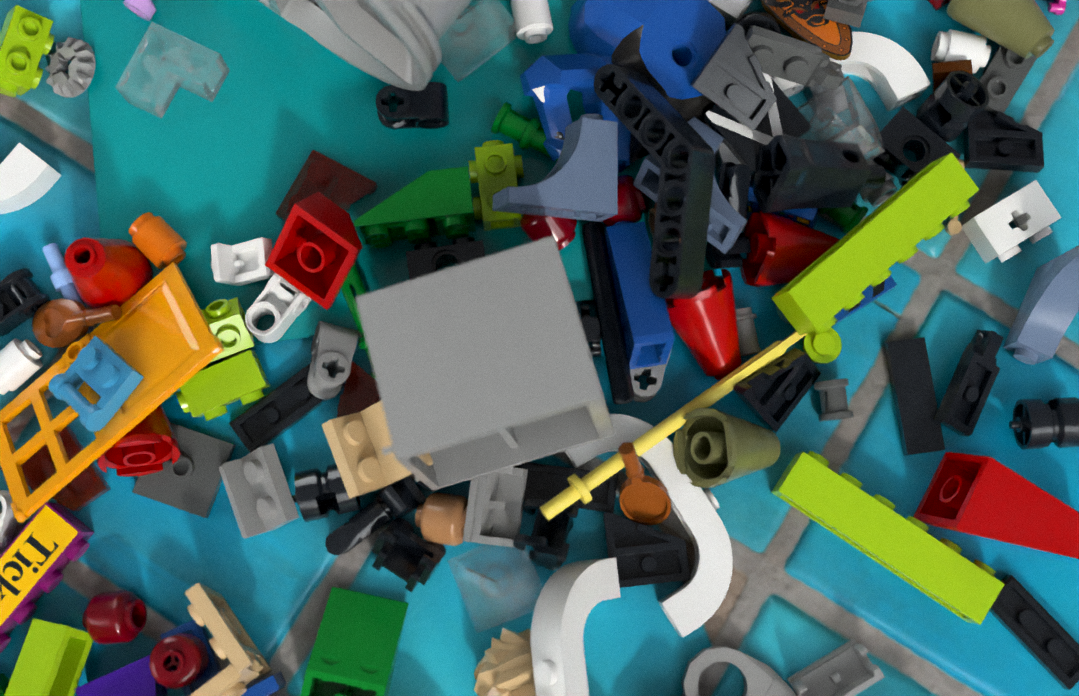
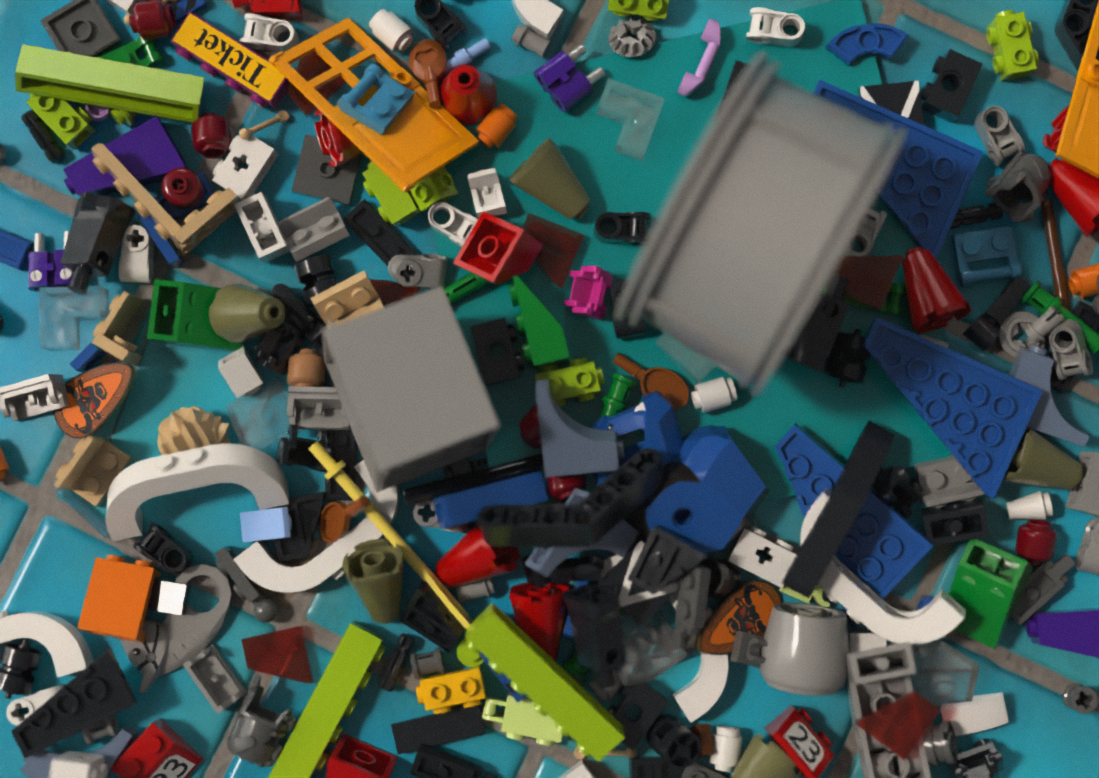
camera: 90 degrees right, 5 degrees up
(54, 193) = (530, 40): none -> light grey pin
(105, 522) = (281, 117): none -> tan hinge
(111, 153) = (563, 80): none -> dark purple piece
(153, 555) = (241, 181): none -> white brick
(237, 177) = (552, 181): none -> olive cone
(247, 557) = (262, 227): none -> white brick
(310, 94) = (625, 228): none -> black piece
(358, 588) = (244, 313): none -> olive cone
(385, 149) = (589, 292): none -> dark pink piece
(437, 606) = (240, 373): none -> white brick
(505, 83) = (656, 379): none -> dark orange piece
(640, 591) = (265, 524): none -> light blue slope
(749, 604) = (264, 609): none -> dark grey plate
(807, 591) = (279, 654): none -> clear red wing
(828, 440) = (396, 662): none -> black axle
(869, 370) = (452, 688): none -> yellow brick
(904, 626) = (256, 727): none -> dark grey helmet
(914, 289) = (522, 720): none -> yellowish green brick

